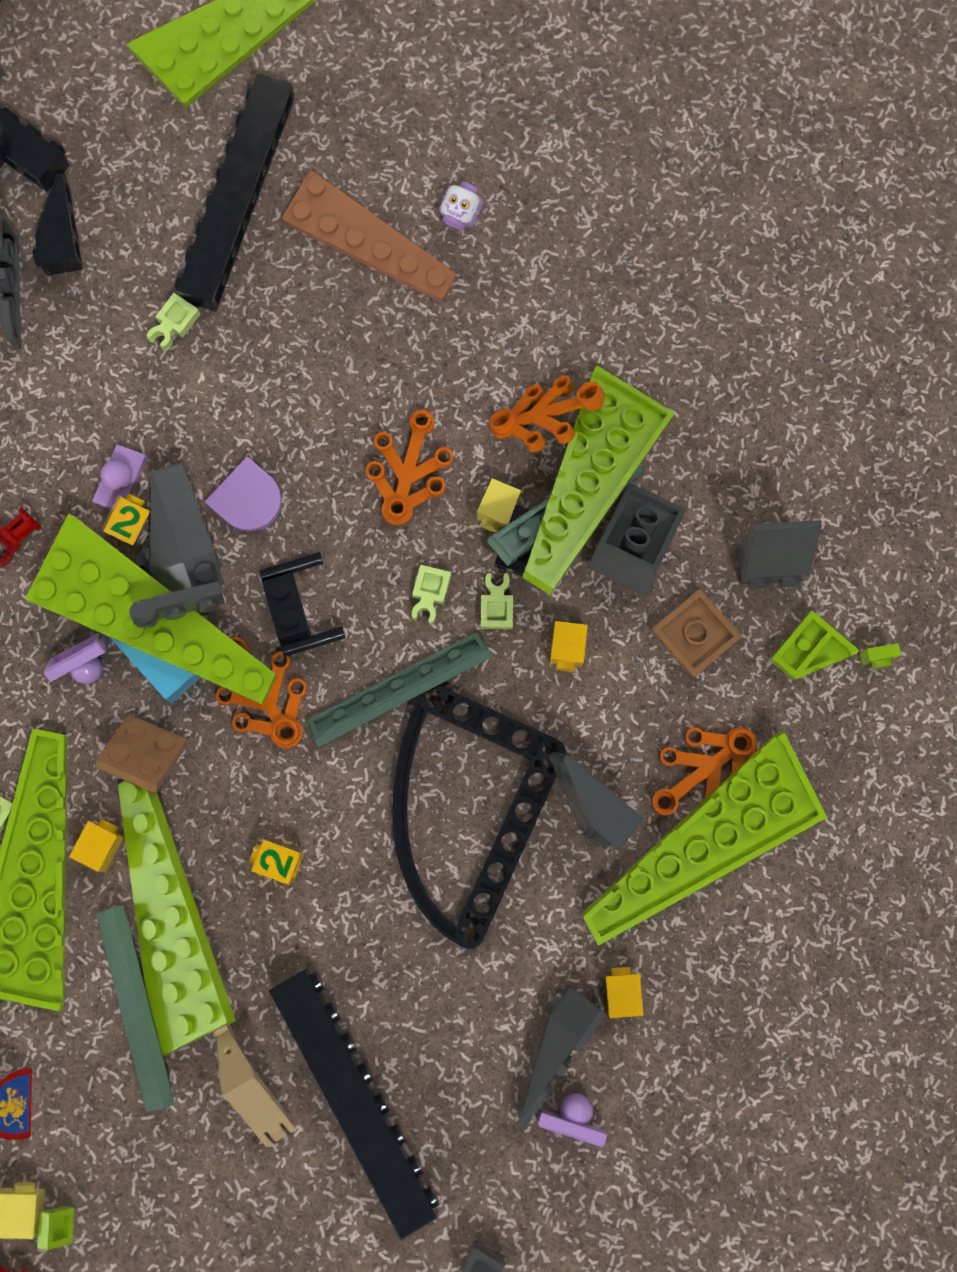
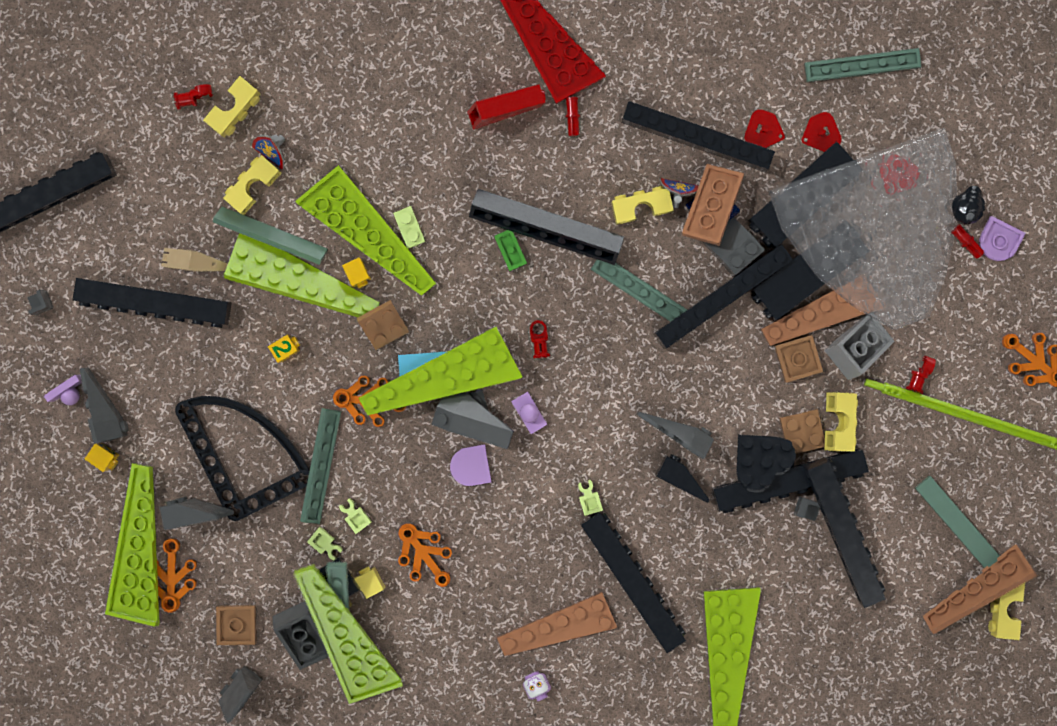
camera: 125 degrees right, 10 degrees up
(50, 1093) = (260, 170): none -> light yellow arch
(55, 1227) = (202, 131): lime plate -> none
(79, 660) = (451, 328): lavender tile -> none
(126, 518) = (502, 401): yellow brick -> none
(176, 604) = (433, 394): dark grey hinge -> none
(288, 609) = (400, 444): black plate -> none
(510, 422) = (397, 640): orange plant -> none
(568, 645) = (277, 560): yellow brick -> none
(811, 648) = (187, 672): lime wing -> none
(880, 656) = (156, 701): lime plate -> none

